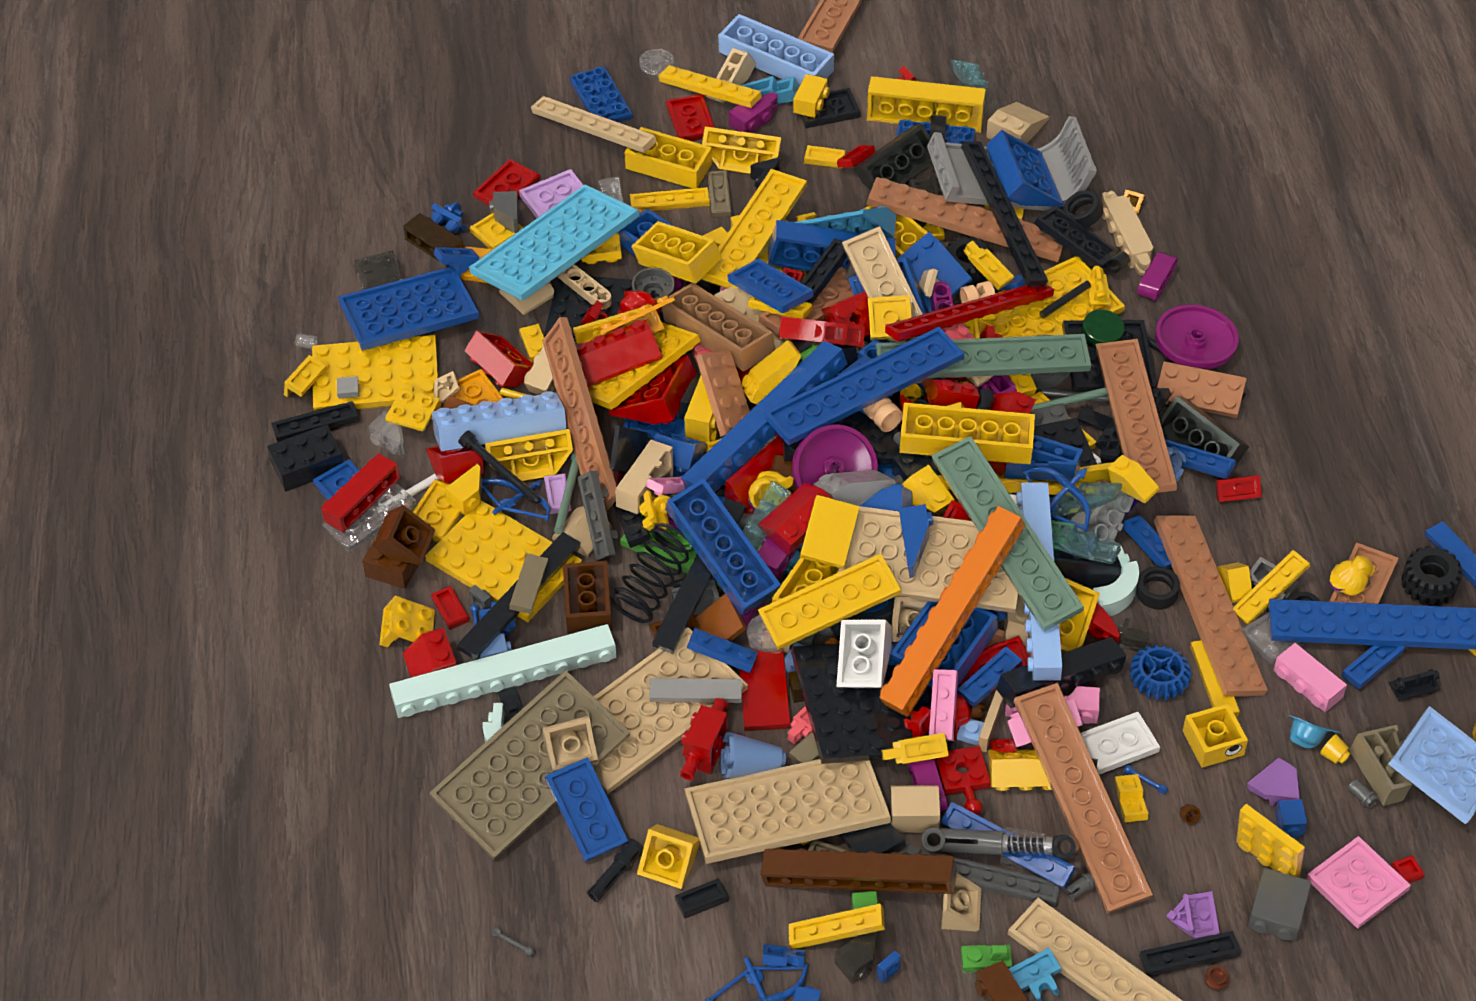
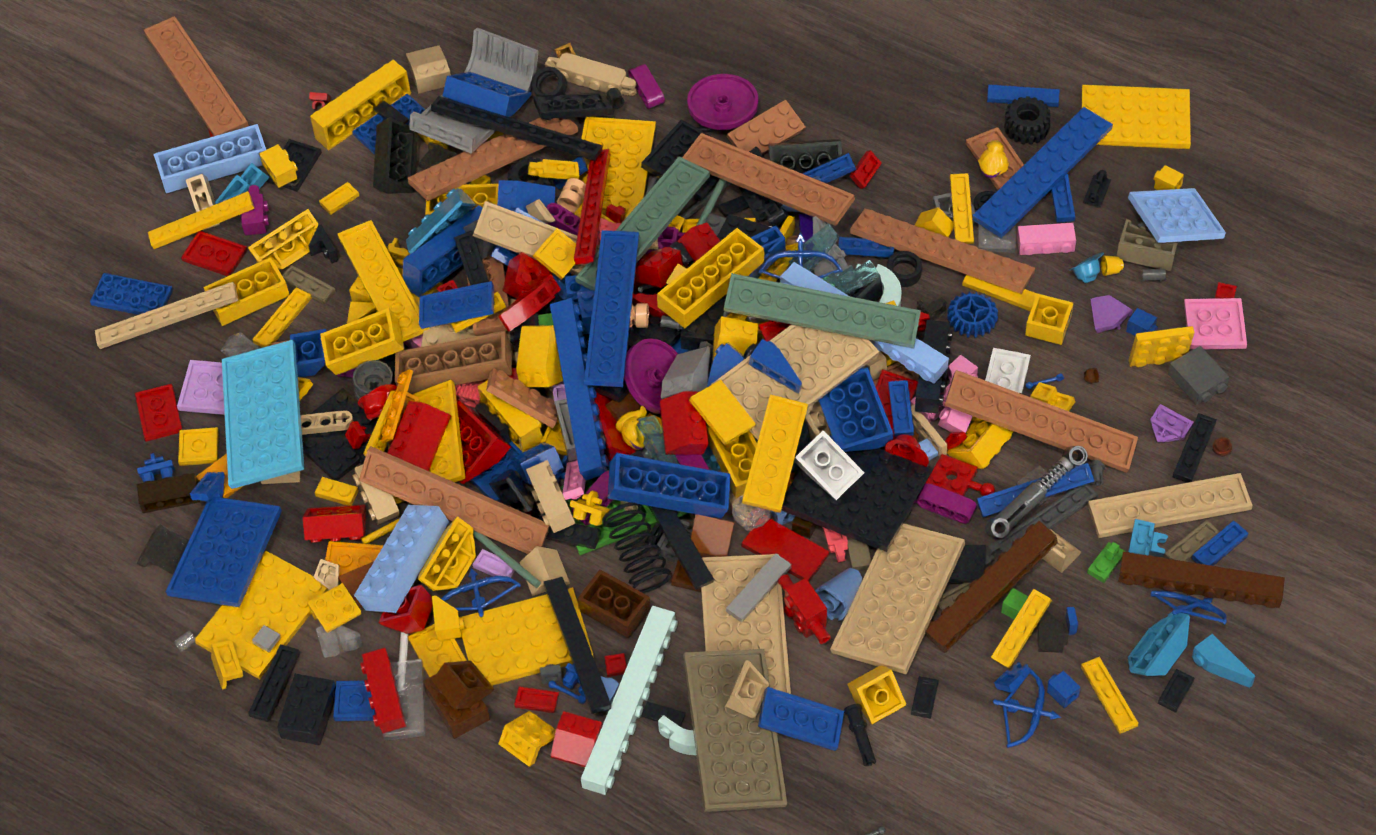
camera: 50 degrees left, 5 degrees up
(469, 441) = (411, 586): black piece -> none
(506, 209) = (193, 426): dark grey slope -> none
(528, 583) = (576, 631): dark tan tile -> none
(531, 637) = (615, 664): none -> red tile
(596, 515) = (552, 550): dark grey hinge -> none
(655, 61) = (132, 238): clear wheel -> none
(722, 650) = (738, 549): blue plate -> none
(856, 156) = (362, 178): red tile -> none
(915, 808) = (967, 520): tan slope -> none
(917, 749) = (924, 488): yellow hinge -> none
(919, 722) = (904, 473): red tile -> none
(943, 703) = (906, 448): bright pink plate -> none
(952, 611) = (852, 387): orange brick -> none
(969, 73) = (358, 61): clear light blue slope -> none
(1065, 299) = (620, 149): black bar -> none
(1099, 289) = (628, 124): yellow hinge -> none
(1102, 327) = (671, 144): dark green tile -> none
(1133, 479) = (832, 212): yellow slope -> none

